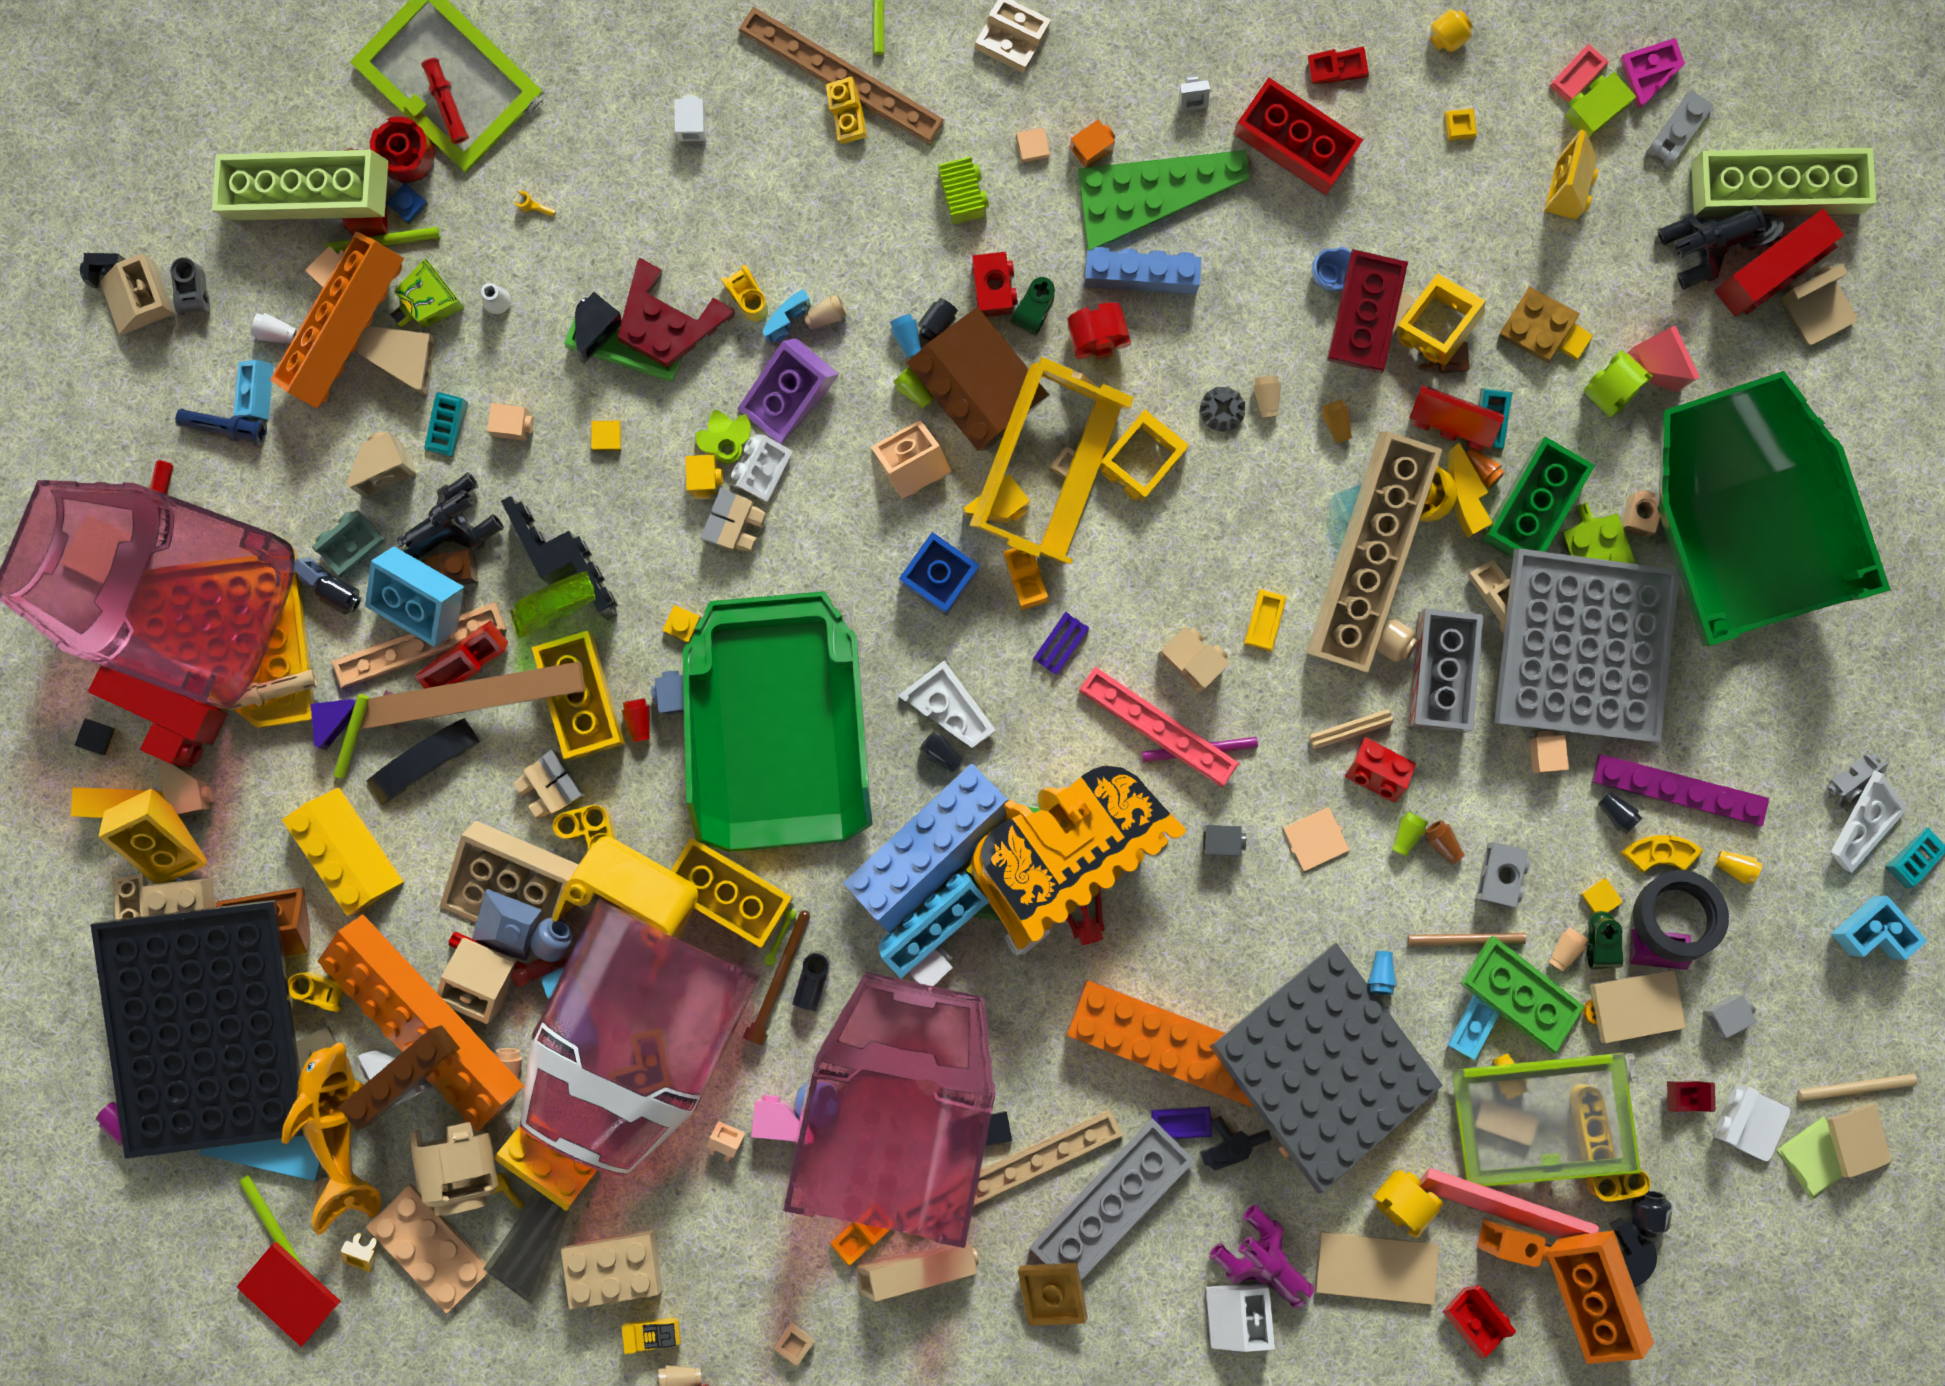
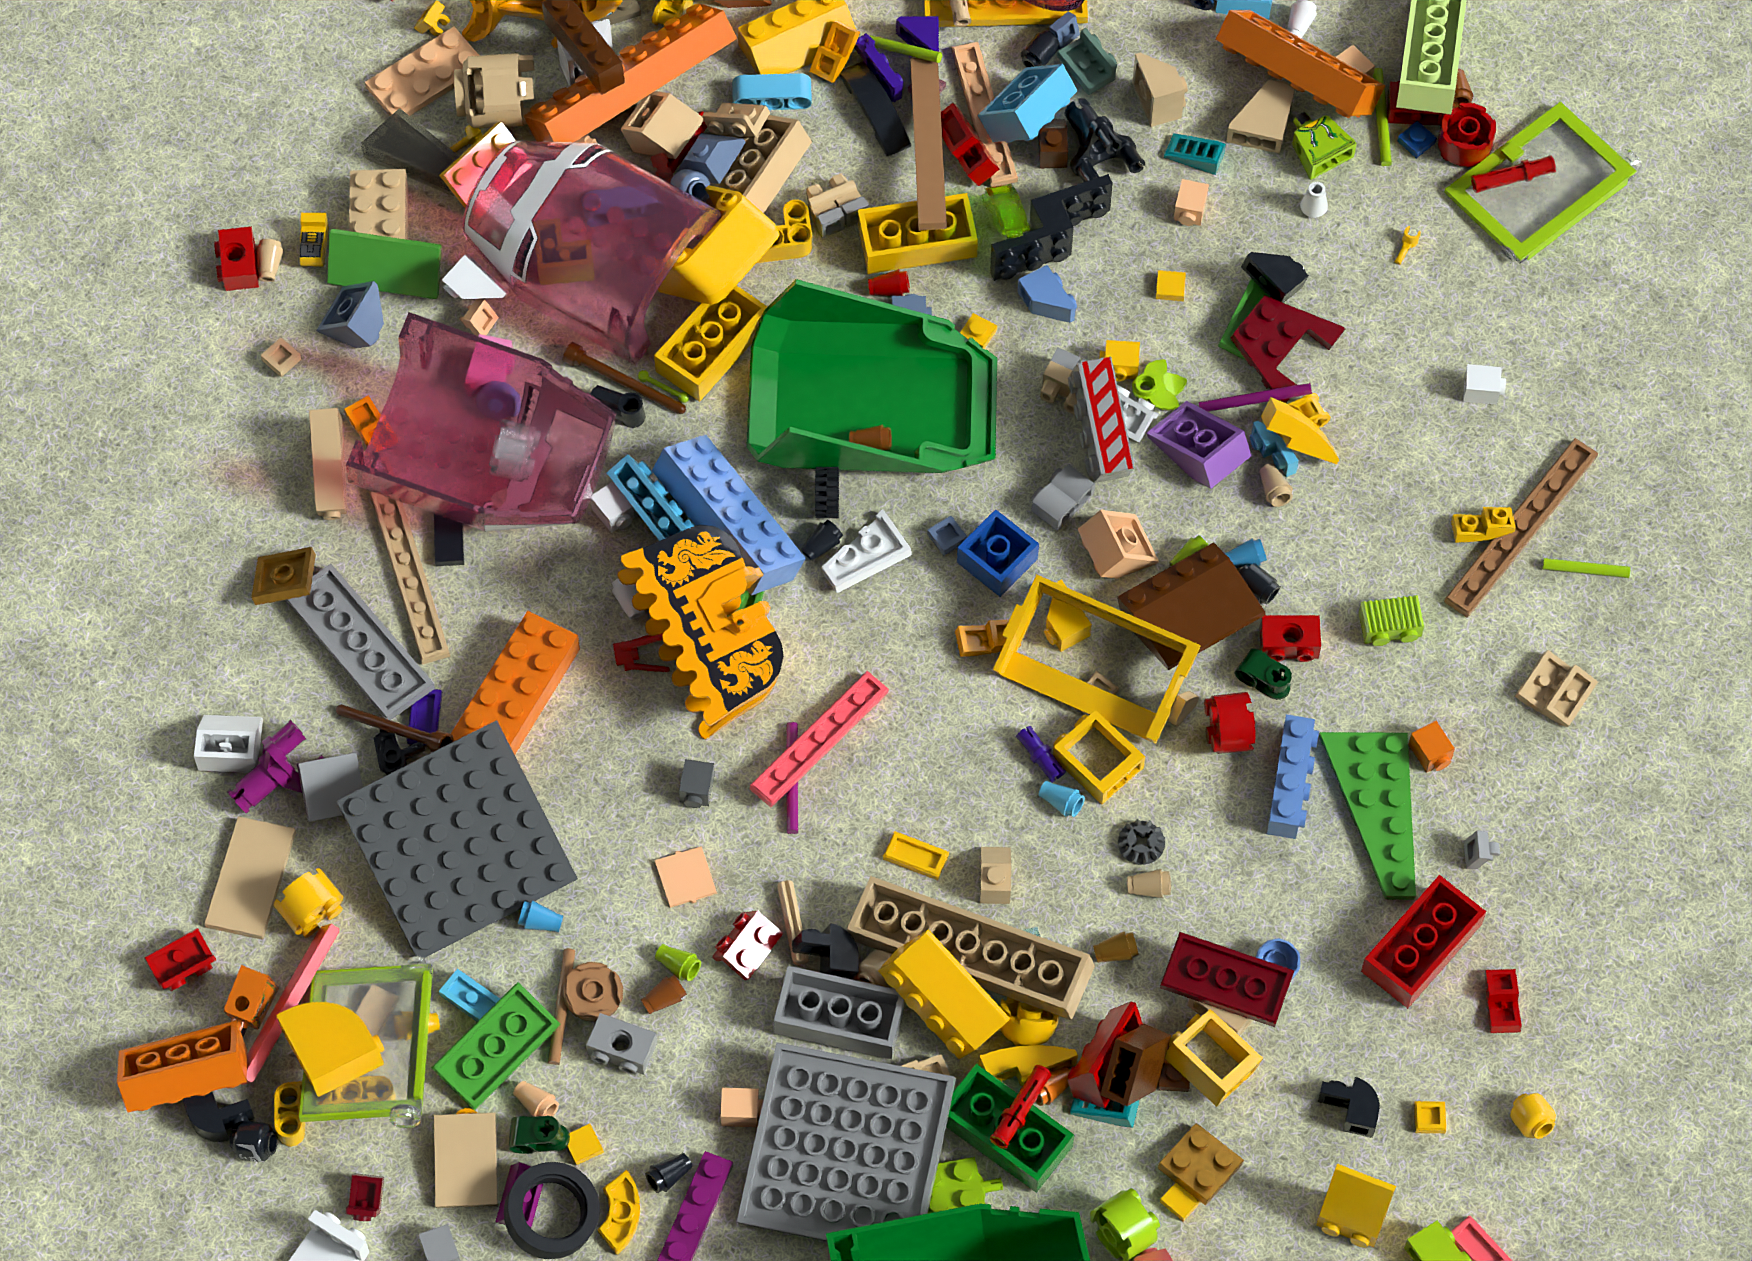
camera: 100 degrees right, 20 degrees down
(361, 809) = (836, 51): none -> light orange slope
(371, 762) = (879, 65): none -> dark purple hinge
(416, 871) = (773, 90): none -> medium azure beam
(457, 902) = (736, 119): none -> tan bracket
(635, 558) = (1045, 295): none -> medium blue slope
(676, 1253) = (390, 262): none -> bright green tile
(691, 1152) = (472, 281): none -> white slope
(732, 337) = (1256, 397): none -> magenta bar
(737, 1274) = (354, 316): none -> sand blue slope
(774, 290) = (1298, 431): none -> yellow slope
(787, 482) = (1101, 420): none -> light grey brick
(823, 715) = (875, 437): none -> dark orange cone
(864, 518) = (1062, 496): none -> light grey brick
(892, 751) = (827, 492): none -> black tyre
(892, 1077) = (513, 450): none -> clear brick
(920, 628) = (946, 535): none -> sand blue plate
(1033, 144) = (1436, 695): light nougat tile -> none
(1074, 623) = (911, 672): dark purple tile -> none
(1145, 512) = (1040, 754): none -> dark purple pin
(1190, 486) = (1063, 798): none -> medium azure cone
(1193, 659) = (881, 776): tan brick -> none
(1231, 1102) = (433, 740): none -> reddish brown piece
(1277, 541) = (995, 875): none -> tan slope
(1278, 1202) = (326, 782): none -> light grey tile
(1384, 681) = (835, 947): none -> black brick
(1430, 572) = (943, 994): none -> yellow slope
(1450, 911) = (592, 991): none -> medium nougat tile
(1463, 185) = (1360, 1101): none -> black brick
(1472, 384) = (1135, 1065): none -> reddish brown brick
(1542, 490) = (1003, 1133): none -> red pin
(1564, 1156) = (330, 1044): none -> yellow brick

